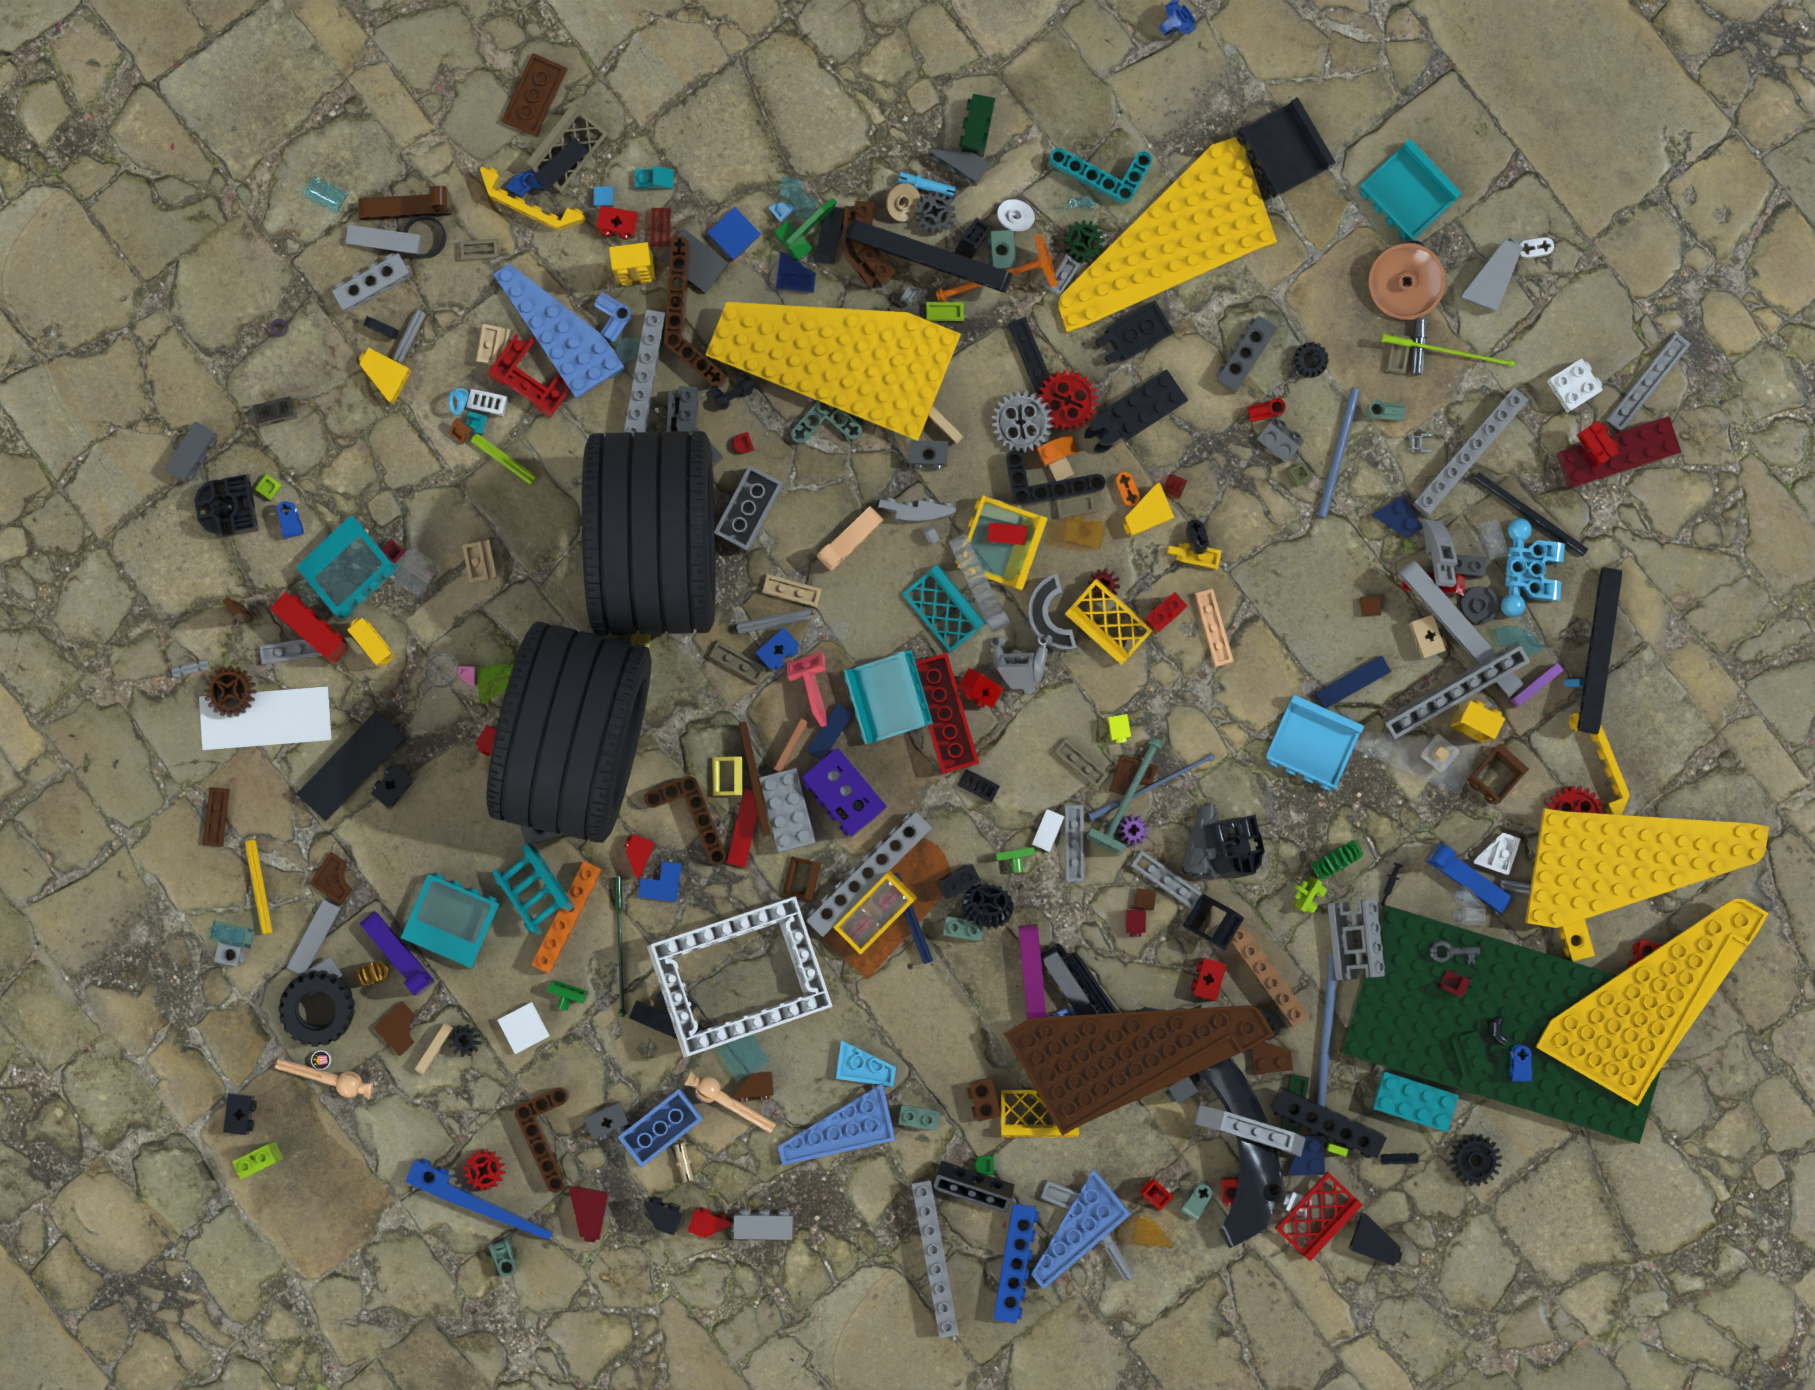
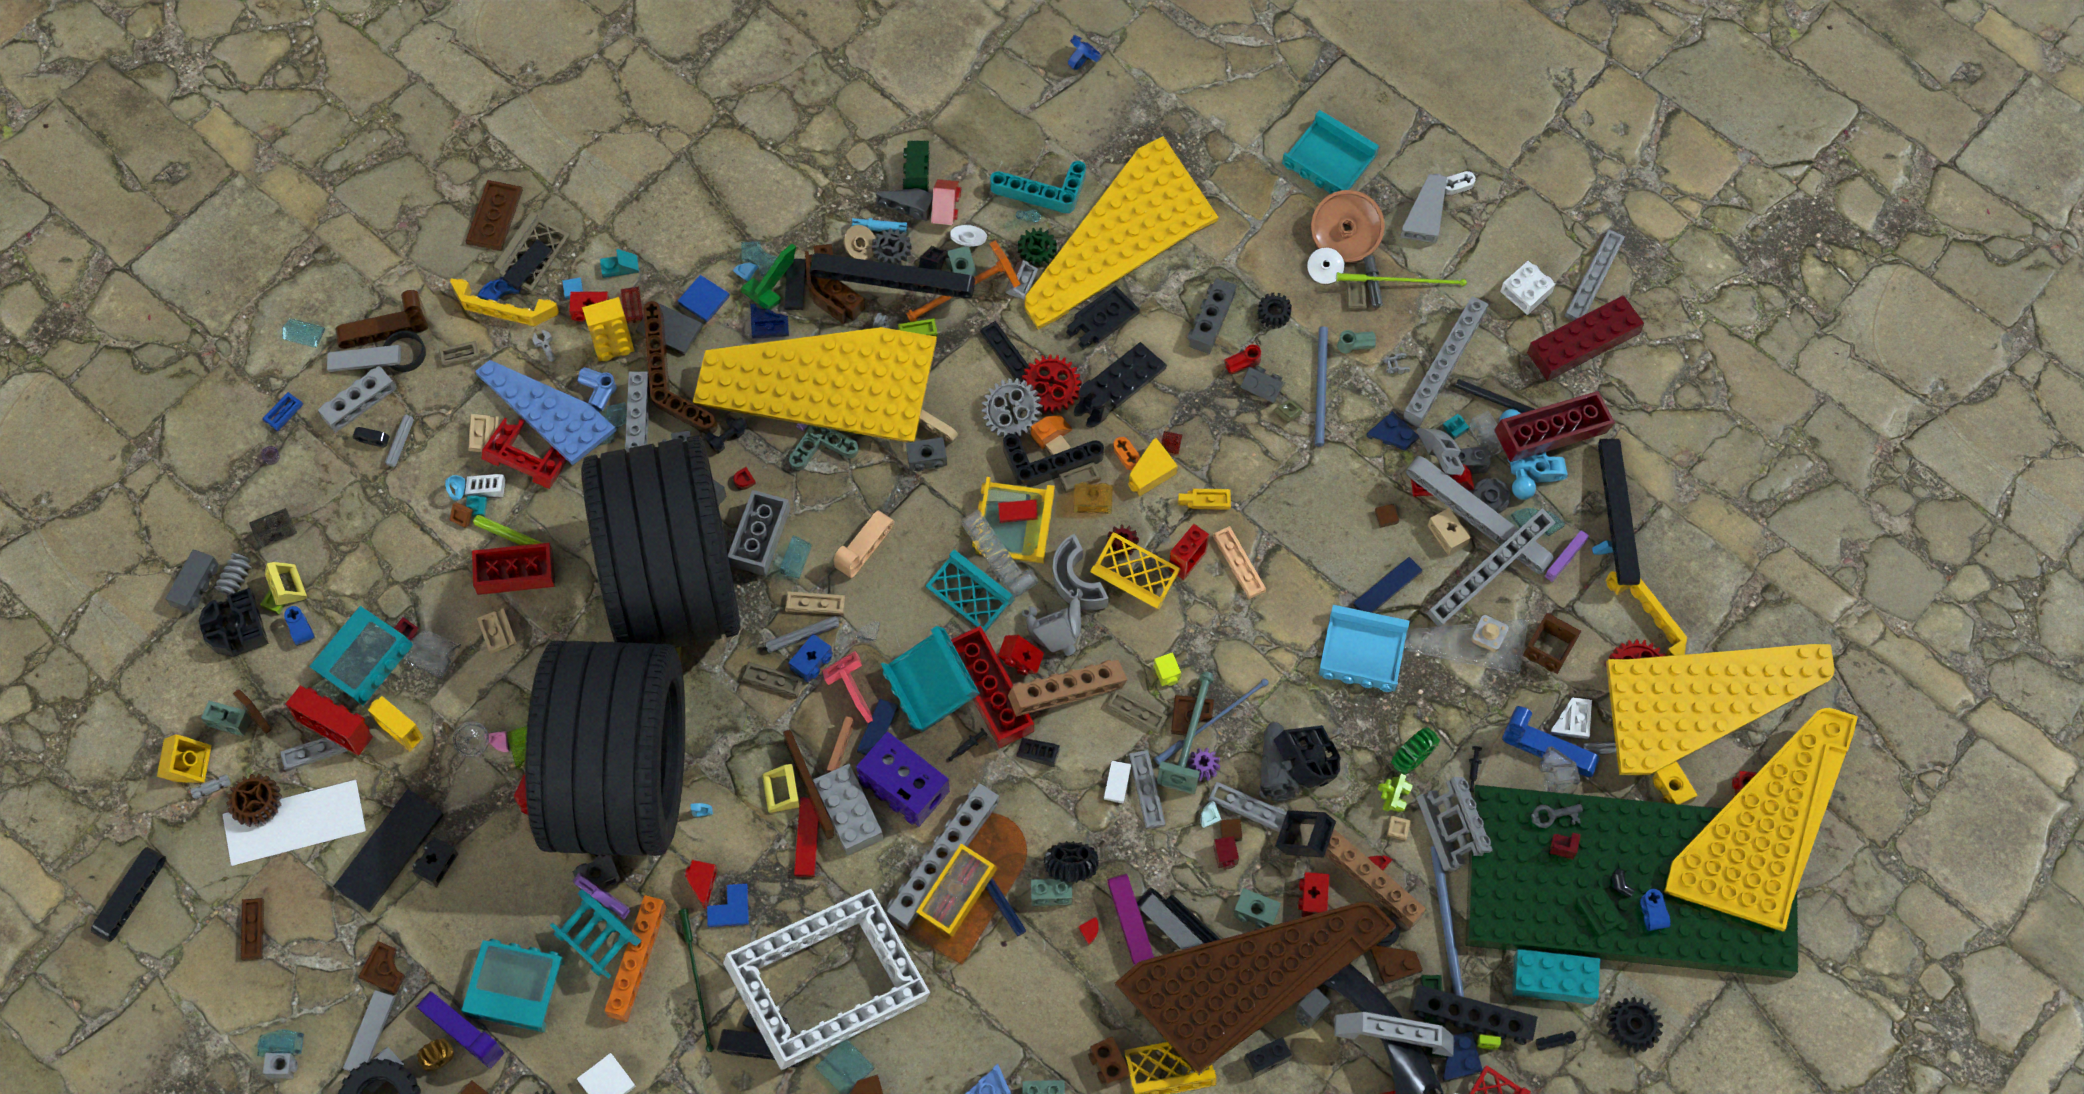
camera: 10 degrees left, 20 degrees down
(105, 762) = (128, 894): none -> black beam
(167, 637) = (184, 760): none -> yellow slope
(210, 604) = (226, 718): none -> sand green brick
(232, 454) = (233, 573): none -> light grey piece
(258, 887) = (304, 991): yellow axle -> none
(272, 474) = (279, 594): none -> light yellow tile
(308, 270) = (285, 413): none -> blue tile
(385, 373) = (380, 476): yellow slope -> none
(503, 500) = (513, 568): none -> red brick
(543, 852) = (601, 895): none -> medium lavender piece
(566, 256) = (545, 344): none -> light grey bar
(567, 994) = (647, 1038): green tile -> none
(645, 782) = (701, 809): none -> medium azure tile
(695, 812) = (754, 829): reddish brown beam -> none
(781, 539) = (795, 557): none -> clear light blue slope
(812, 880) = (886, 858): reddish brown tile -> none
(863, 1067) = (974, 1054): medium azure wing -> none
(913, 765) = (968, 744): none -> black piece
(925, 512) = (934, 506): light grey slope -> none
(931, 535) = (944, 526): light grey tile -> none
(958, 881) = (1035, 845): black brick -> none
(972, 743) = (1043, 699): none -> medium nougat brick
(992, 970) = (1089, 930): none -> red tile
(999, 170) = (945, 196): none -> brick
(1015, 858) = (1090, 812): bright green tile -> none
(1128, 881) = (1209, 815): none -> light aqua tile
(1130, 1124) = (1268, 1057): none -> black brick
(1163, 984) = (1250, 900): none -> sand green brick
(1201, 536) = (1203, 481): black beam -> none
(1277, 958) = (1381, 861): none -> red tile
(1285, 148) = (1208, 139): black panel -> none
(1304, 928) = (1398, 828): none -> tan tile
(1370, 309) = (1325, 274): none -> white dish
(1463, 523) = (1455, 426): none -> teal tile
(1477, 721) = (1519, 590): yellow brick -> none
(1558, 551) = (1554, 426): none -> dark red brick
(1598, 443) = (1564, 325): red brick -> none

